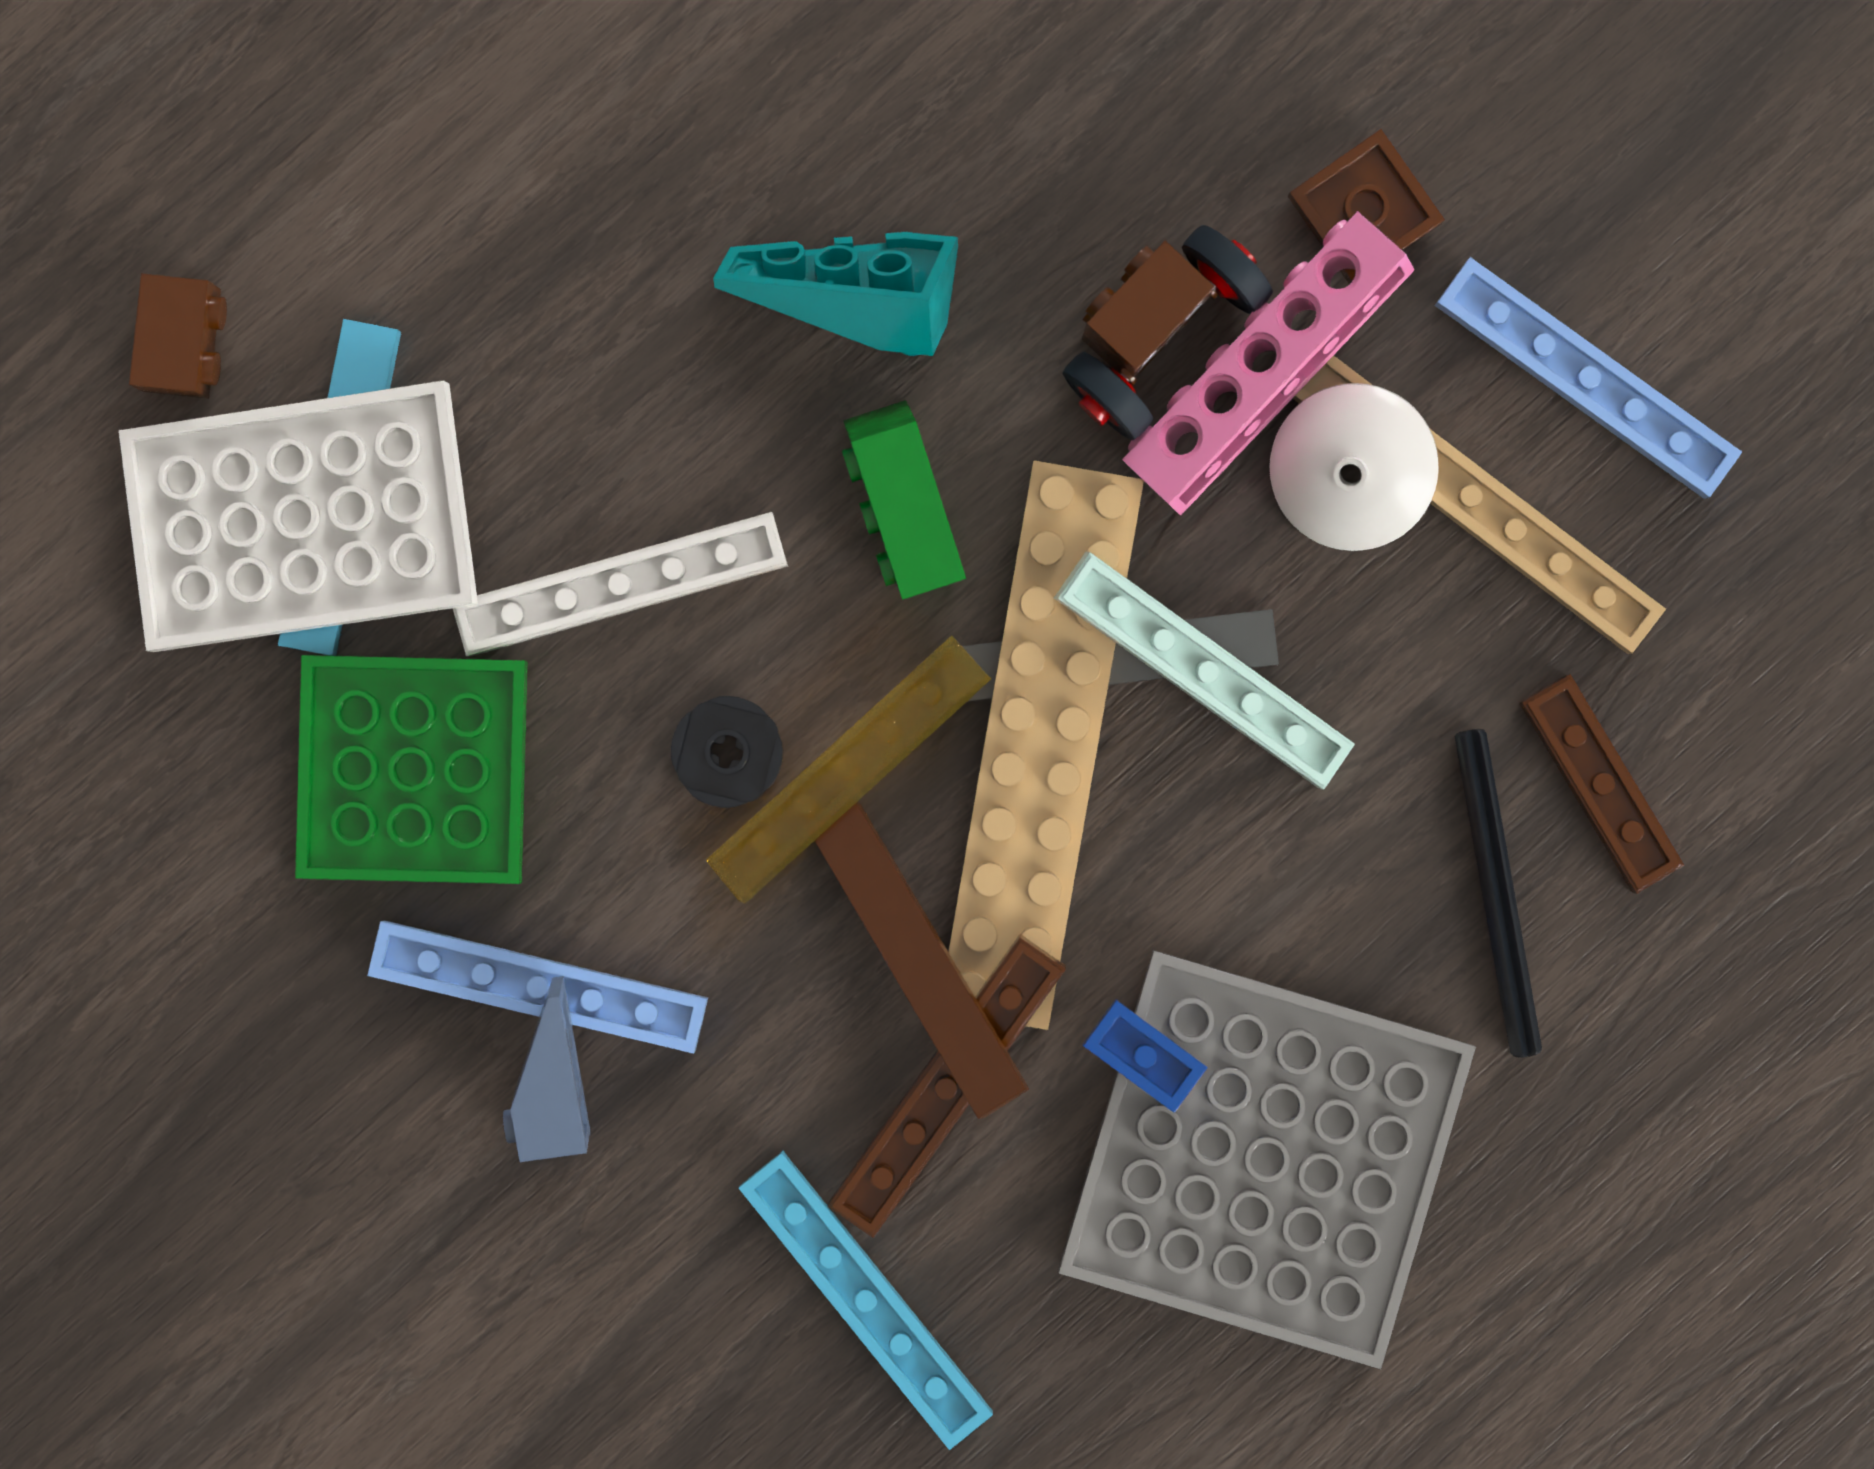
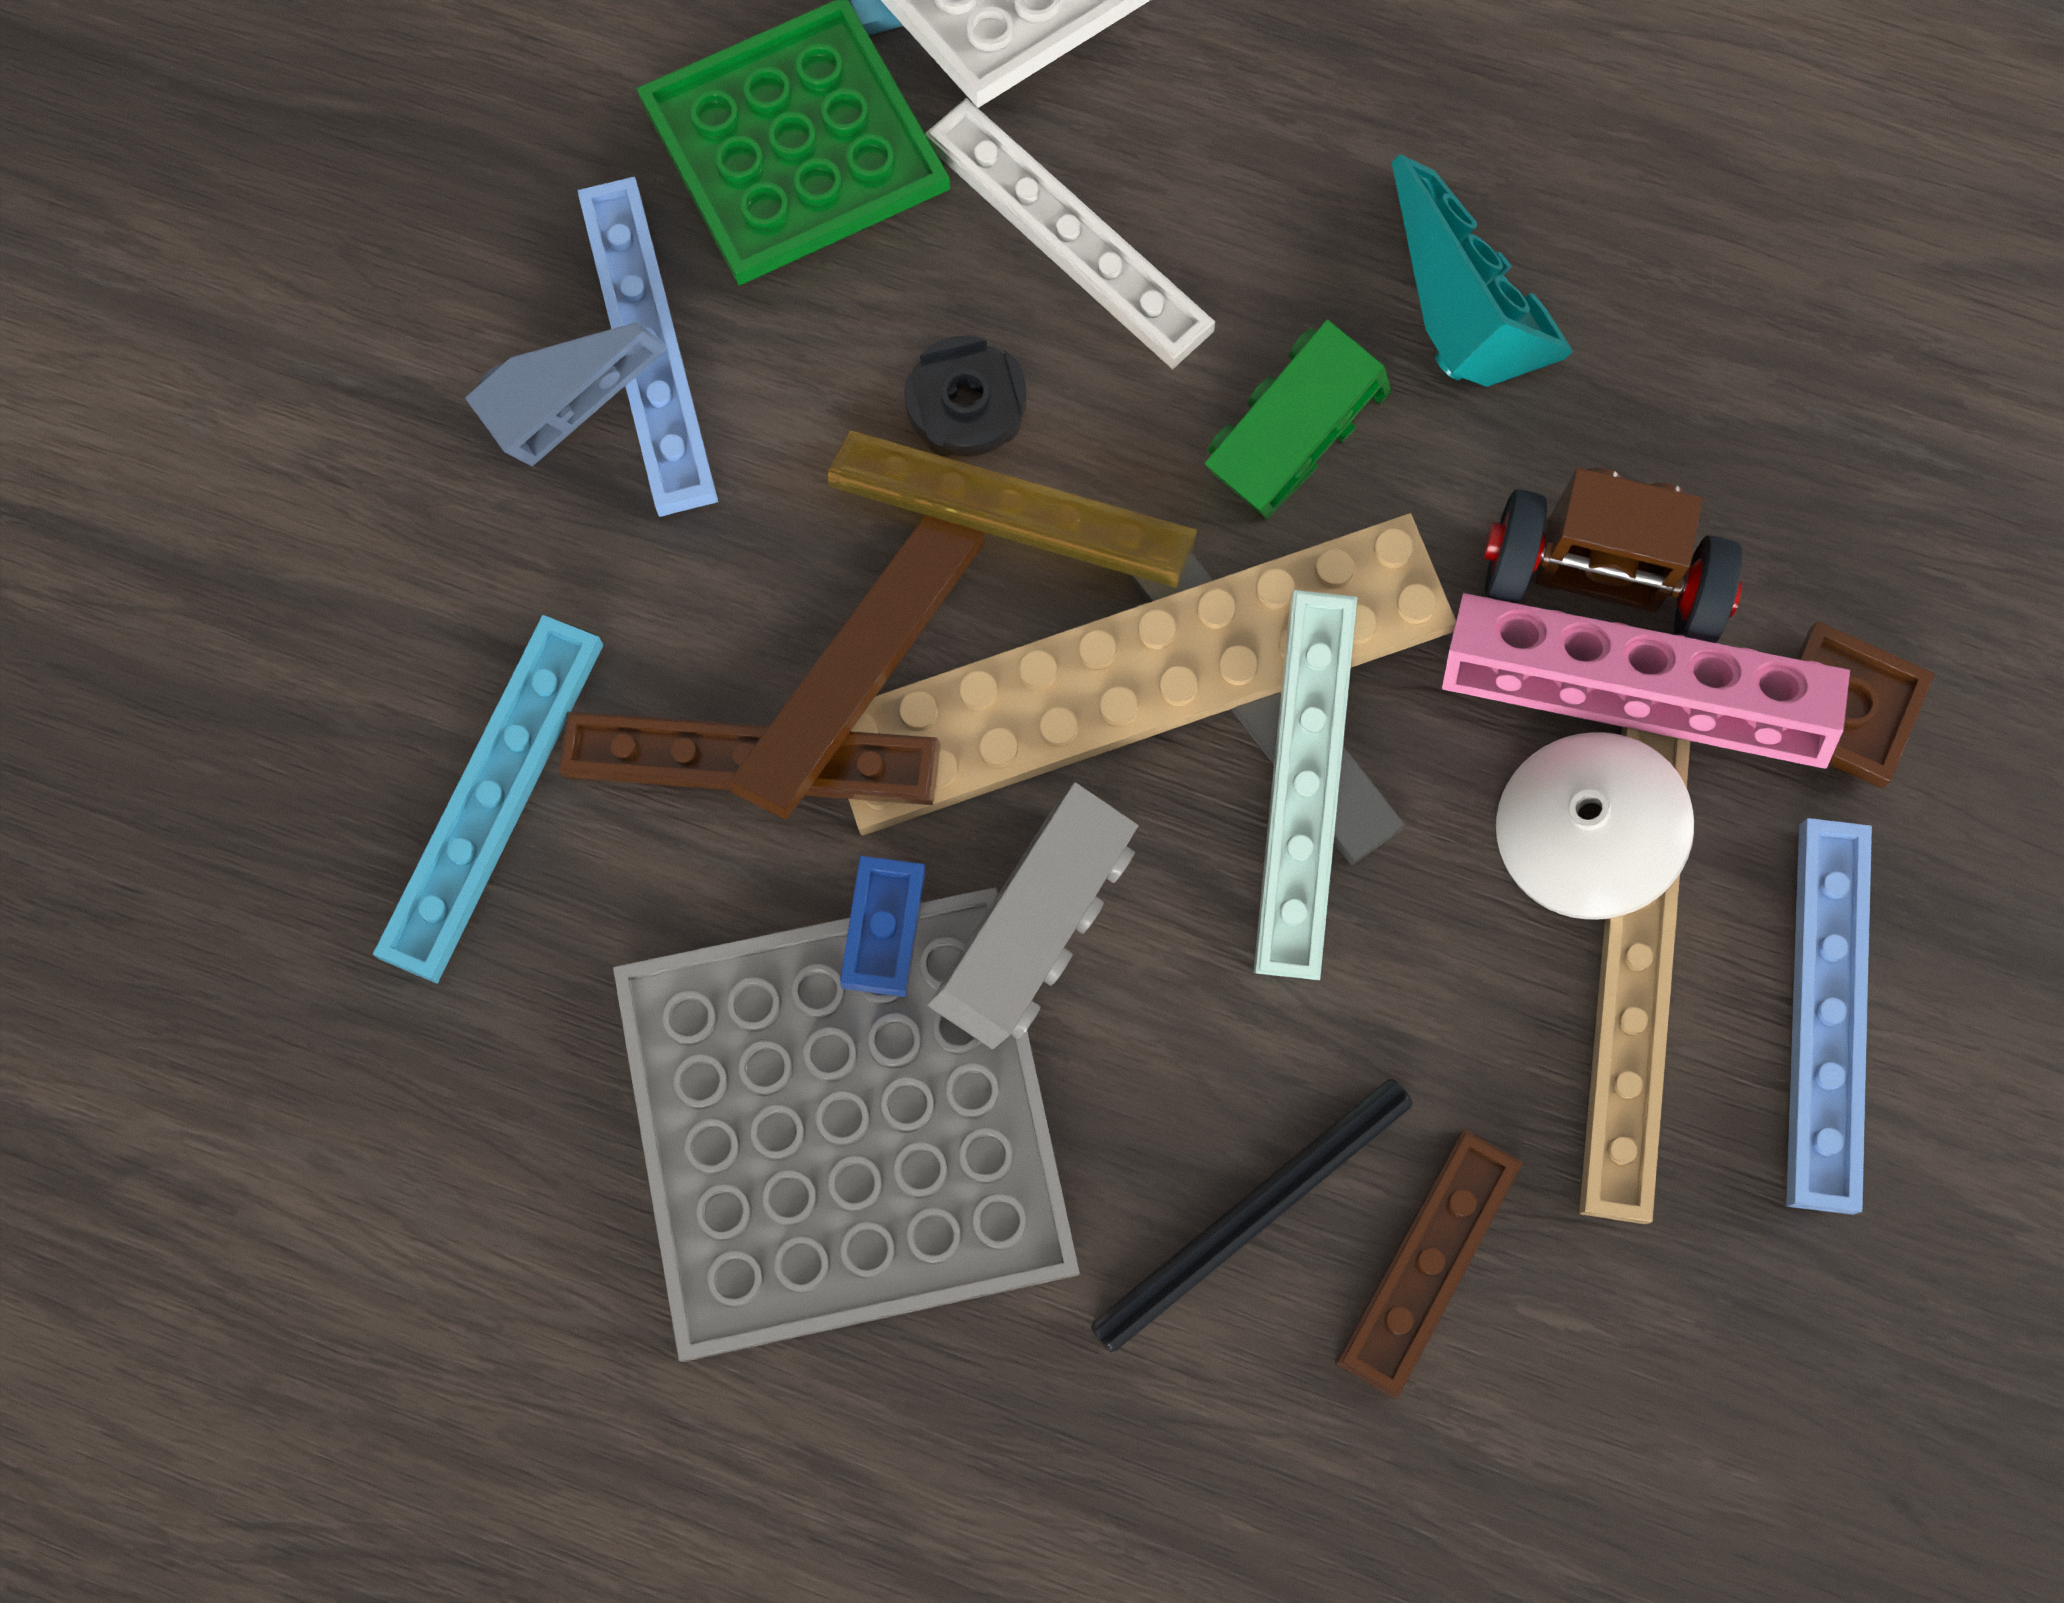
camera: 60 degrees right, 15 degrees down
(1199, 936) = (1034, 917): none -> light grey brick

